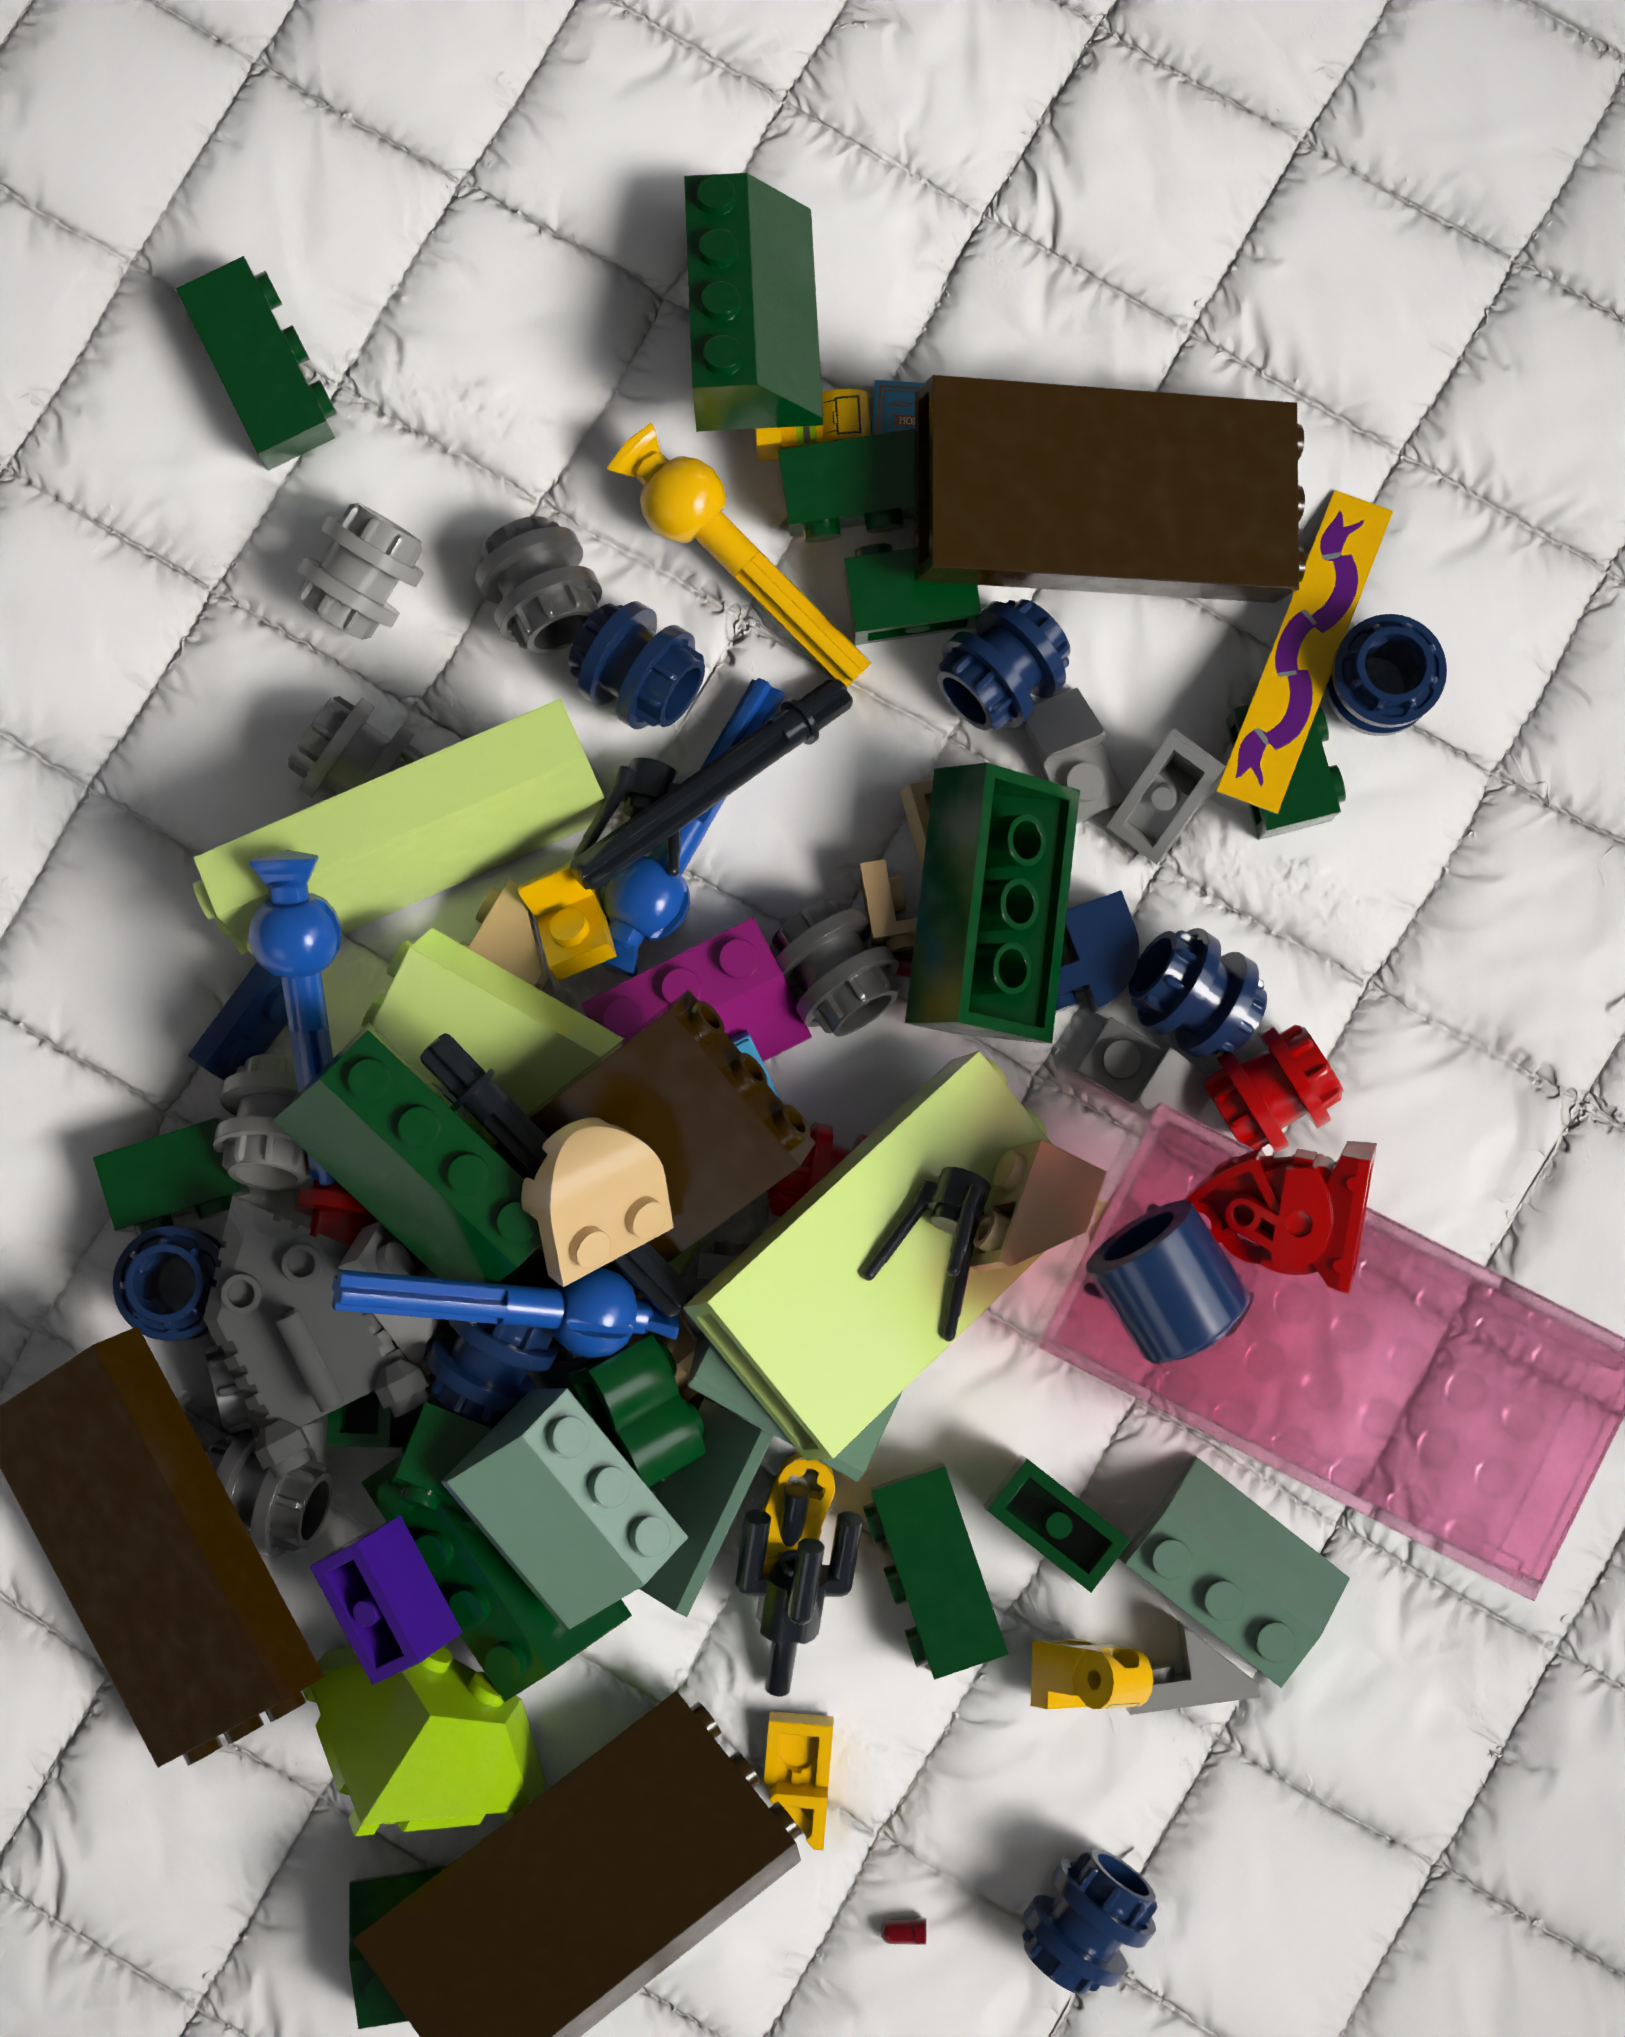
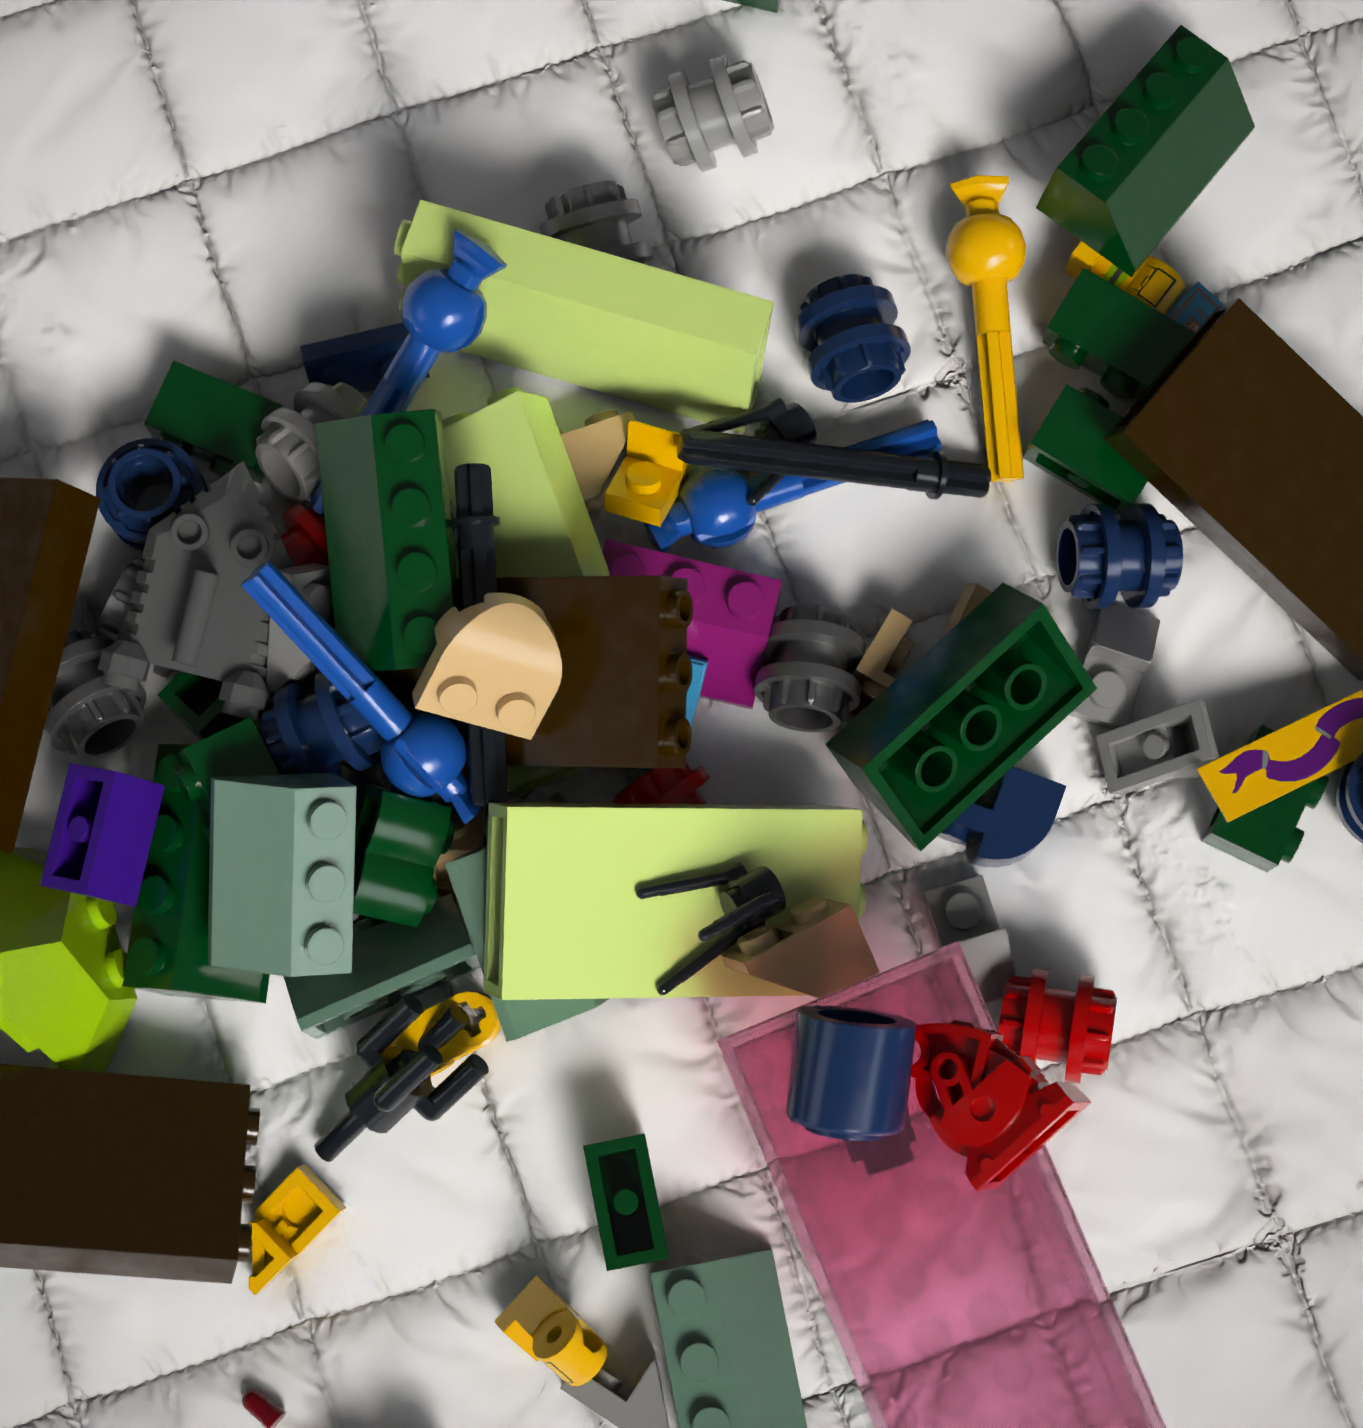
camera: 40 degrees right, 5 degrees down
(537, 583) = (830, 223): flat silver piece -> none
(935, 1572) = (508, 1163): dark green brick -> none
(1199, 993) = (1062, 916): dark blue piece -> none

